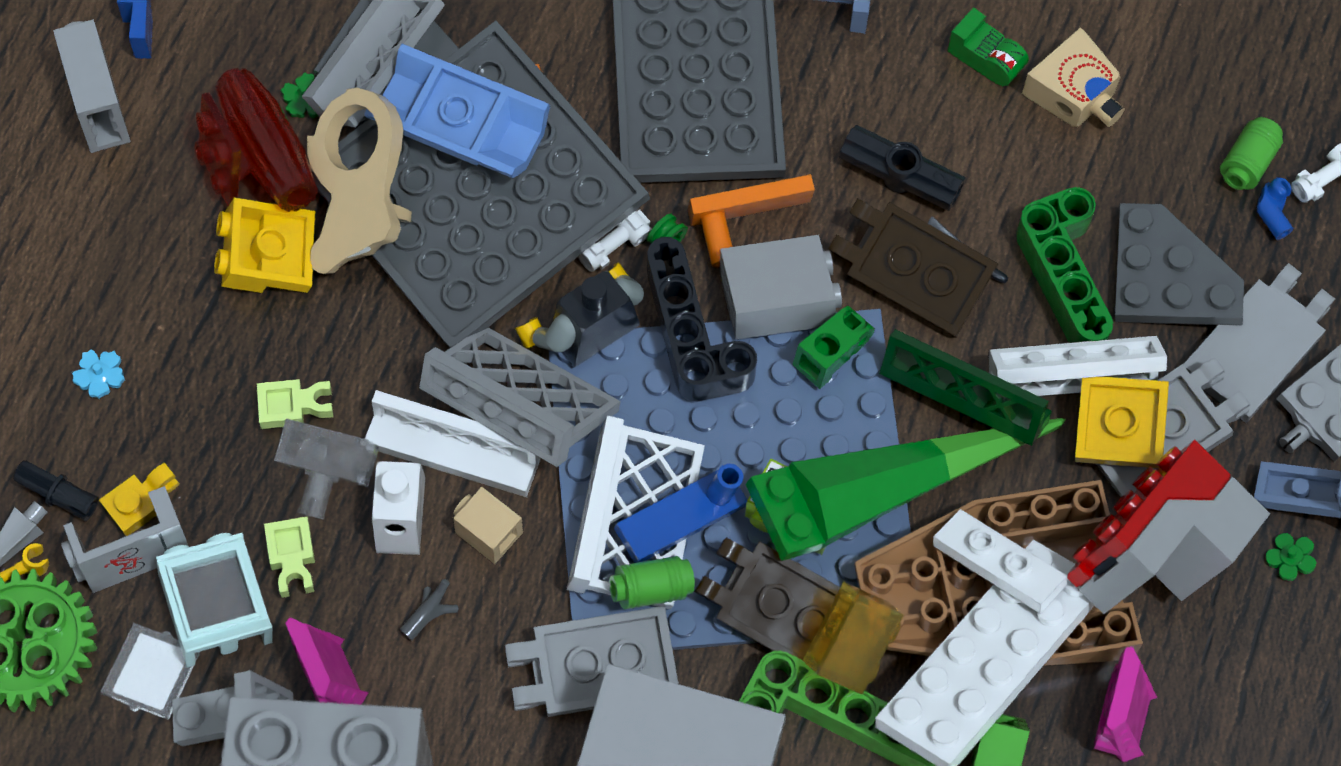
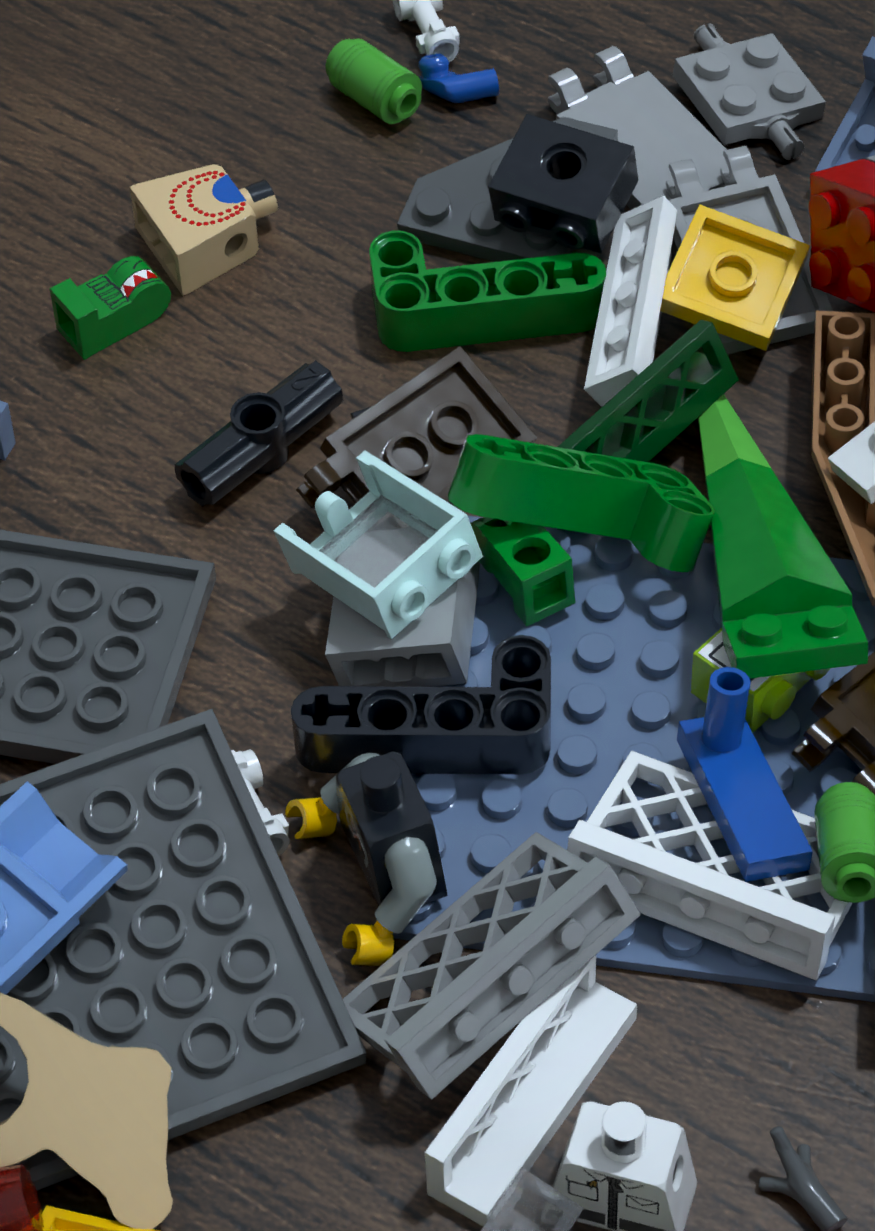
camera: 70 degrees left, 15 degrees down
(487, 524) = (683, 1063): tan brick -> none
(668, 228) = (263, 731): green bush -> none
(716, 208) = (247, 665): orange piece -> none
(793, 255) = (387, 550): none -> light aqua window
(883, 364) = (584, 494): none -> green beam
(1147, 269) = (576, 211): none -> black brick

